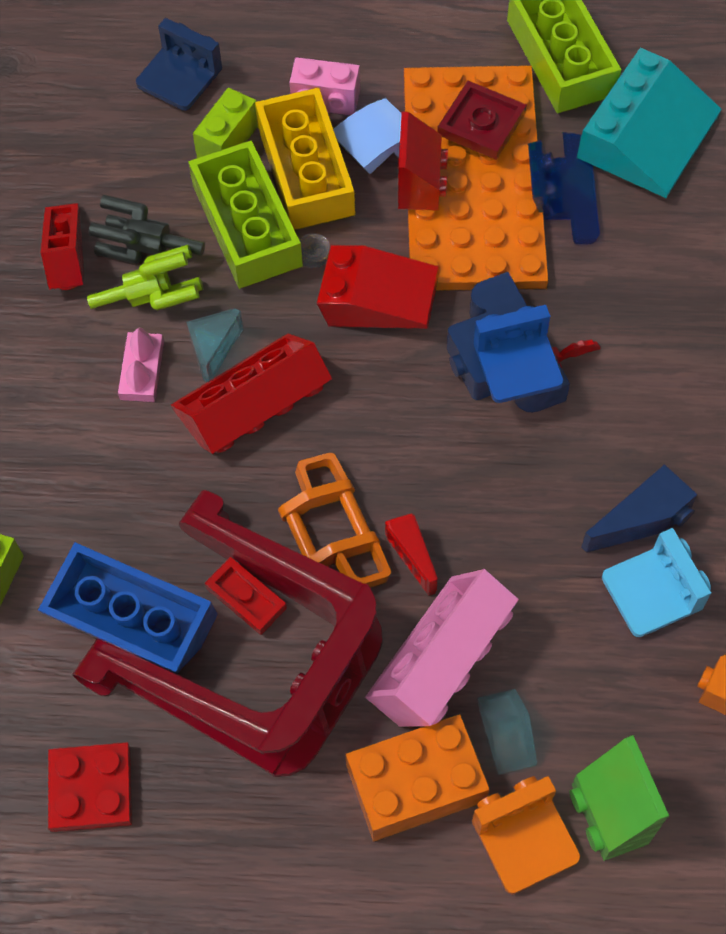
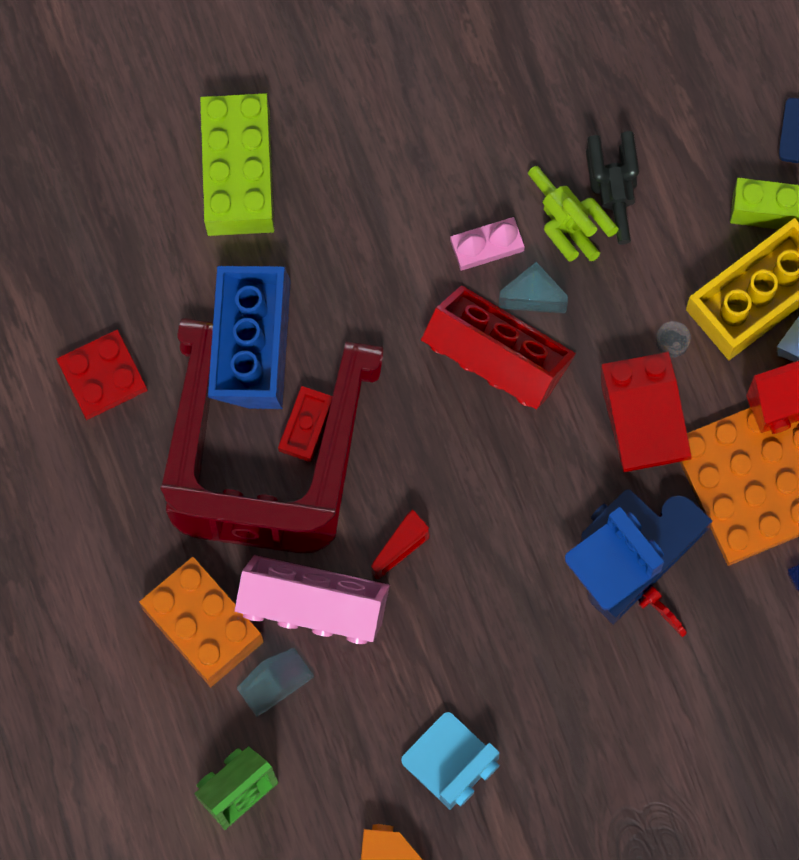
camera: 70 degrees right, 10 degrees up
(62, 247) = (576, 119): red slope -> none
(246, 214) = (675, 262): lime brick -> none
(338, 551) = (398, 501): orange bar -> none
(525, 834) = (189, 726): orange bracket -> none
(645, 512) = (524, 731): dark blue slope -> none

